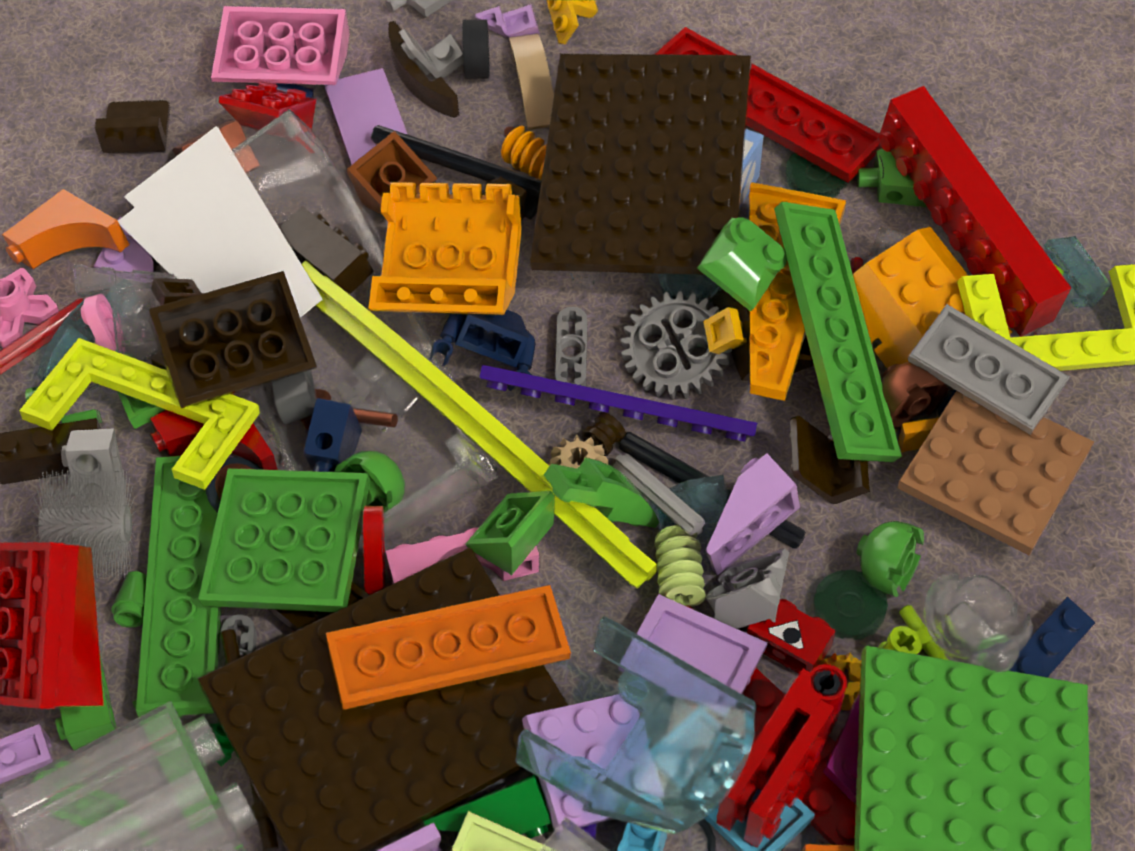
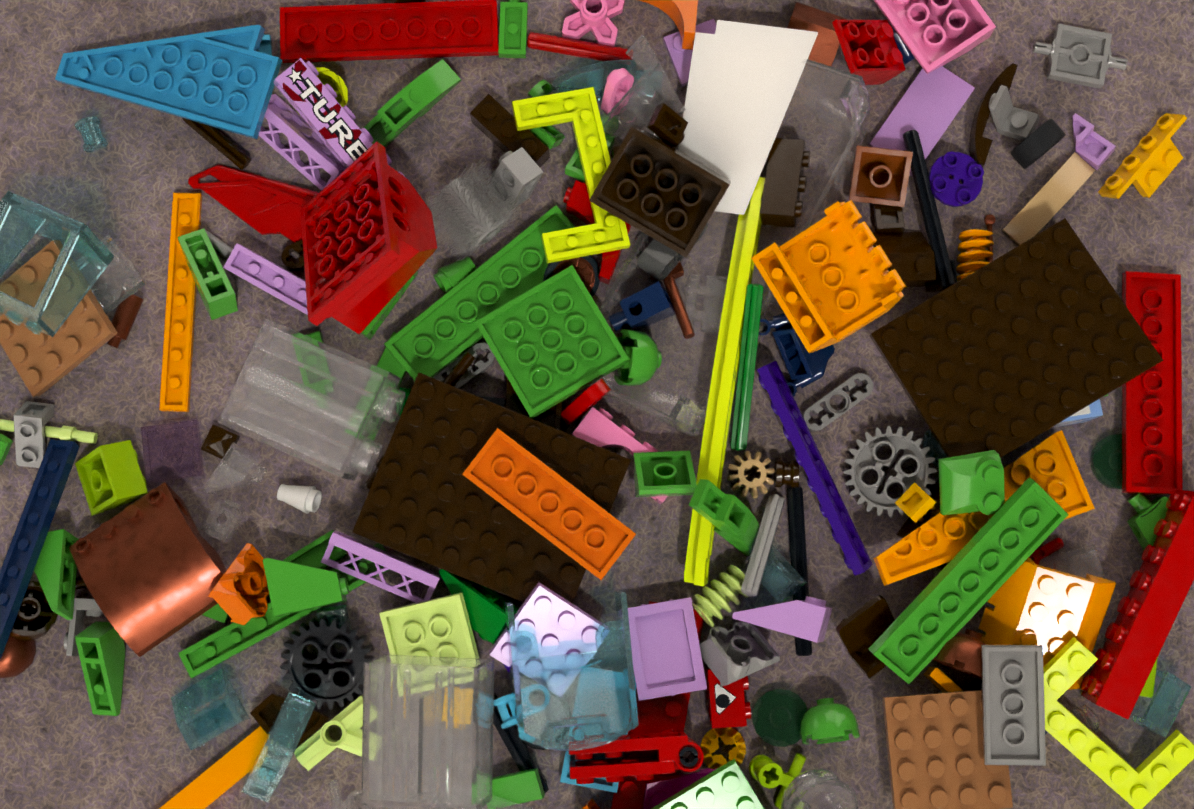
camera: 50 degrees right, 25 degrees up
(419, 340) = (746, 366): none -> green axle
(450, 124) = (961, 168): none -> dark purple plate

